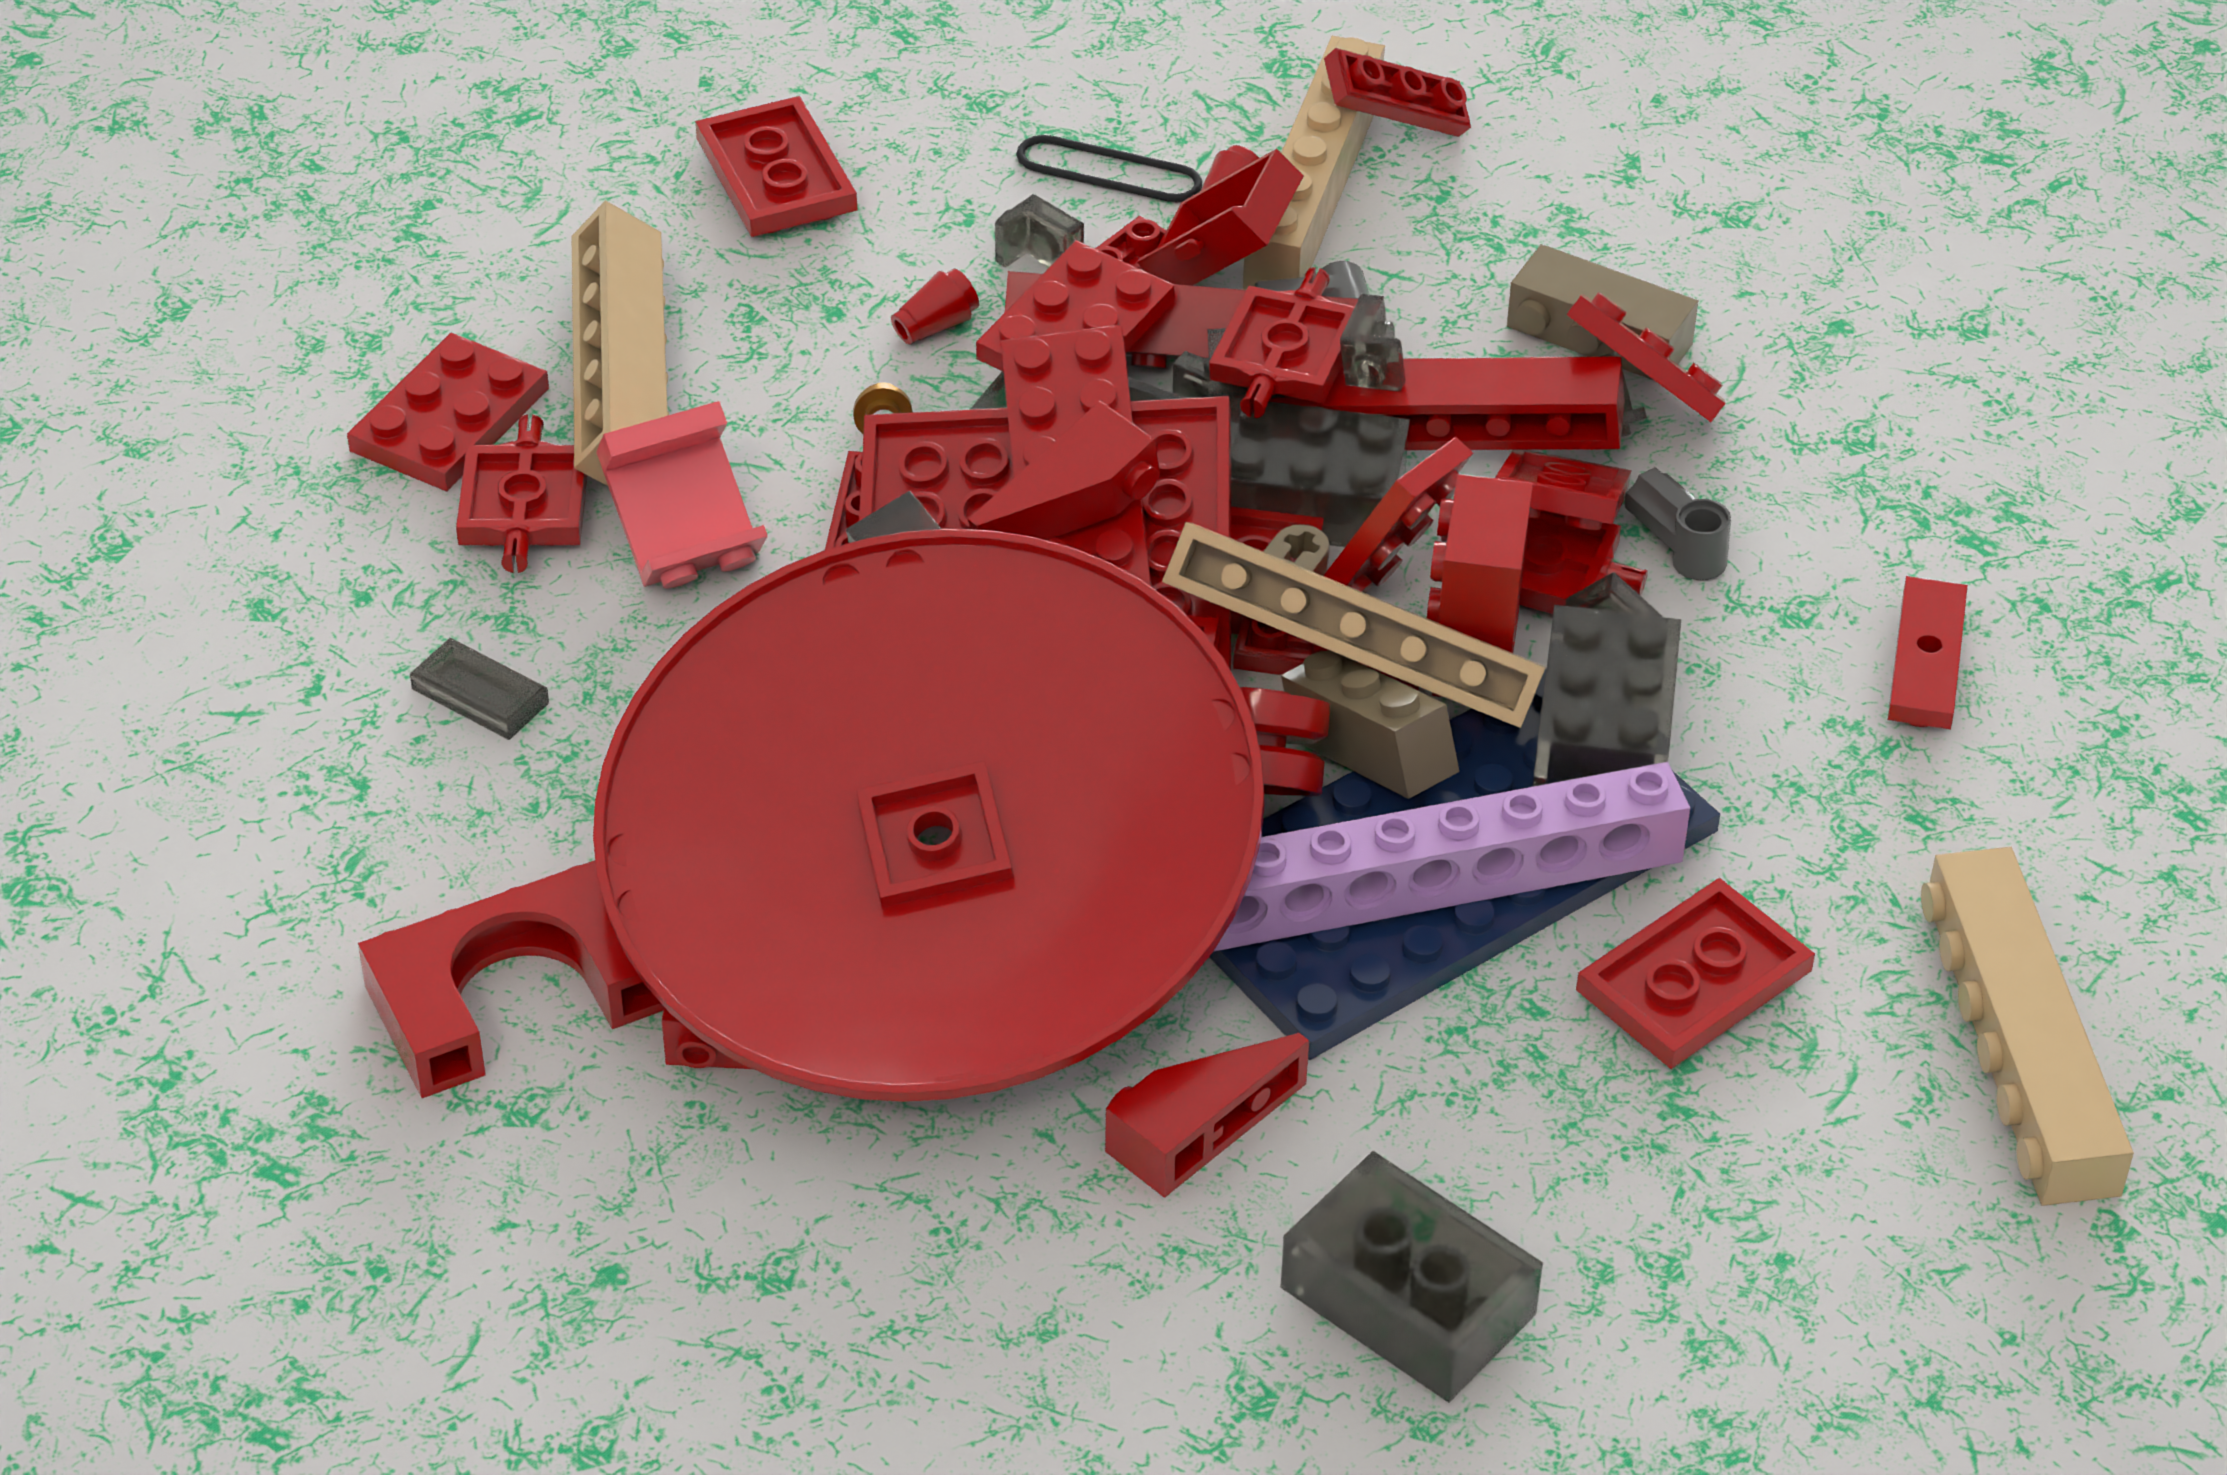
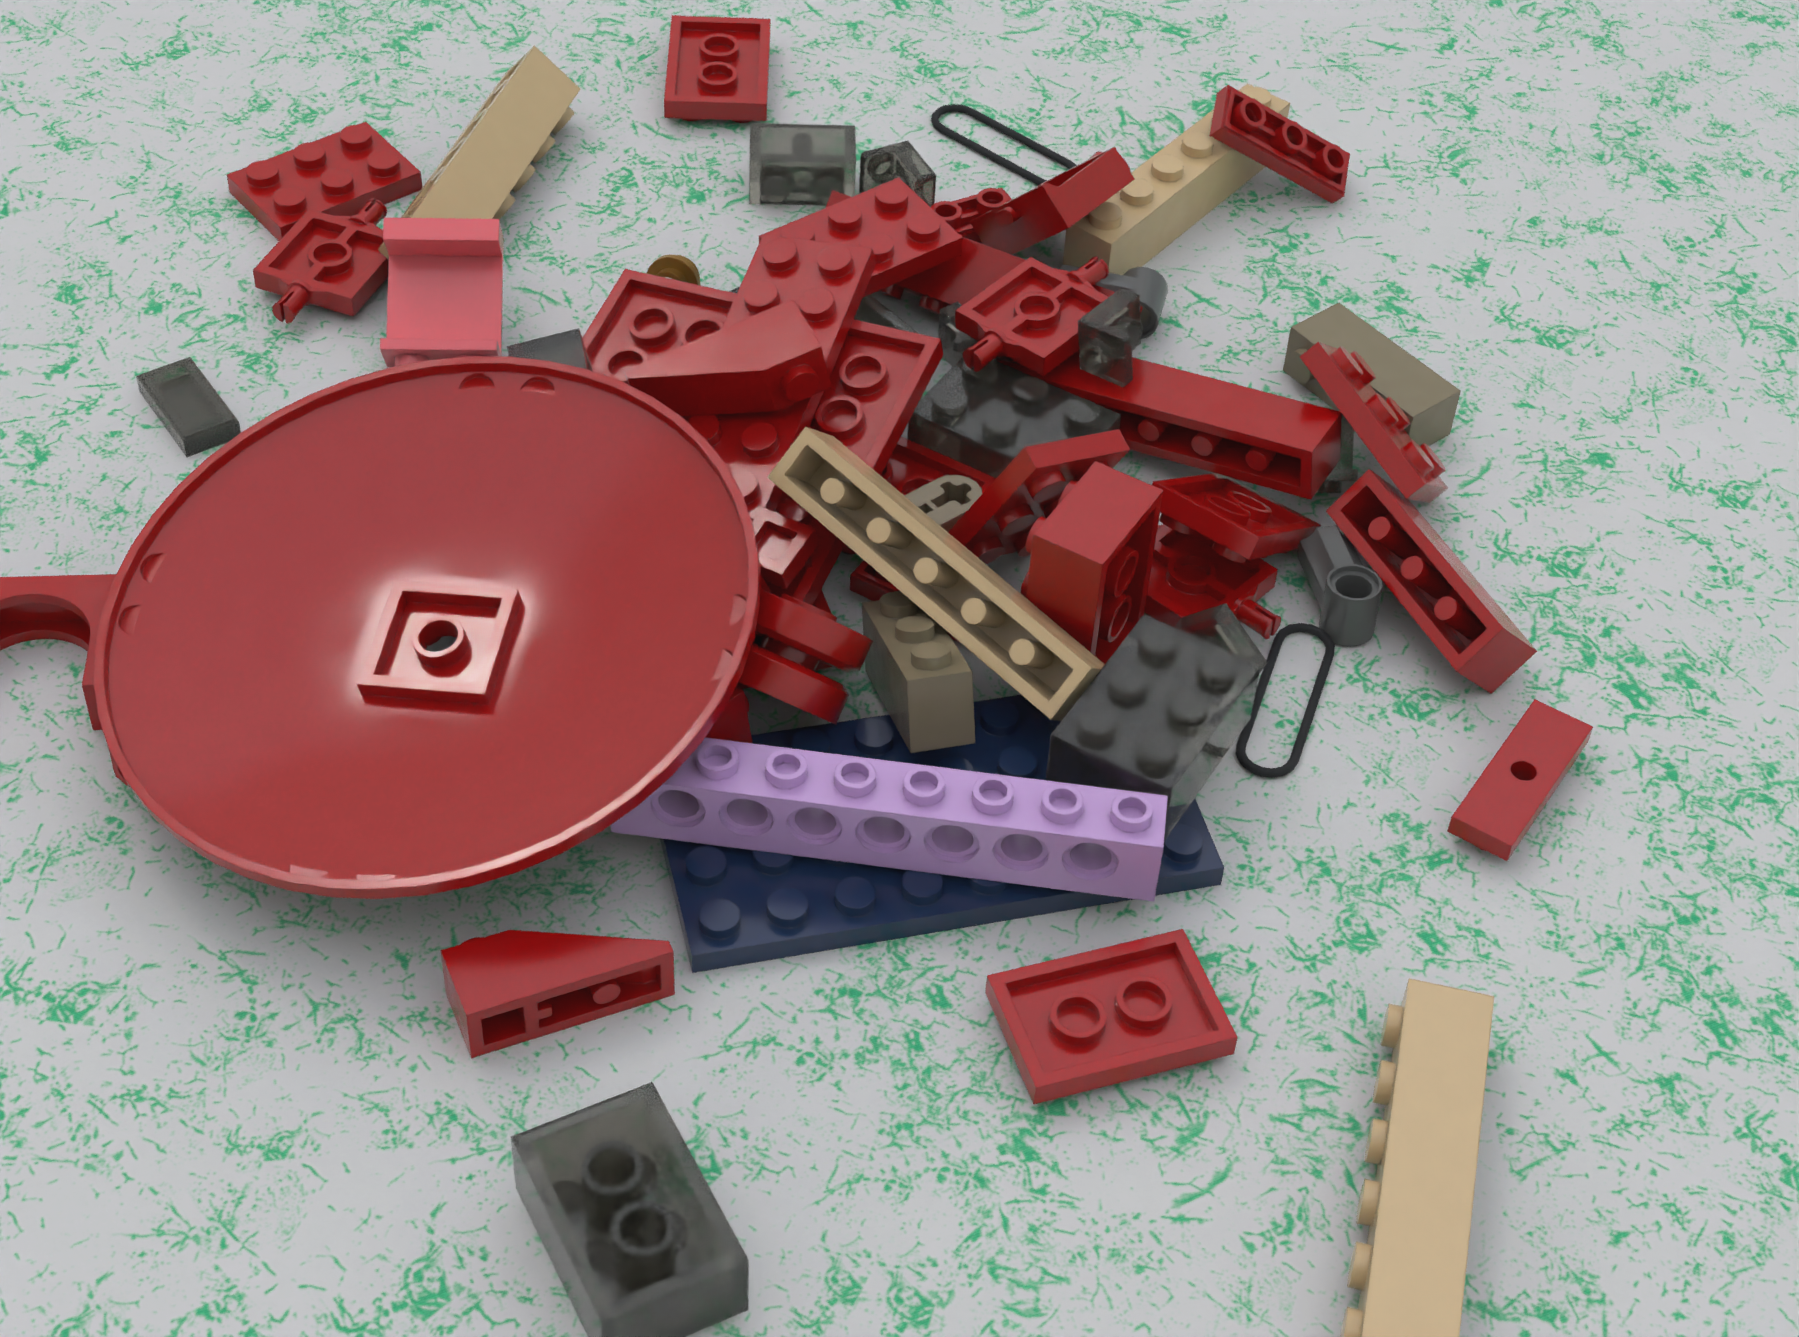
camera: 20 degrees right, 0 degrees up
(920, 241) = (800, 163): none -> clear smoke brick
(936, 307) = (773, 209): red cone -> none
(1708, 638) = (1310, 710): none -> black piece
(1763, 493) = (1431, 582): none -> red brick

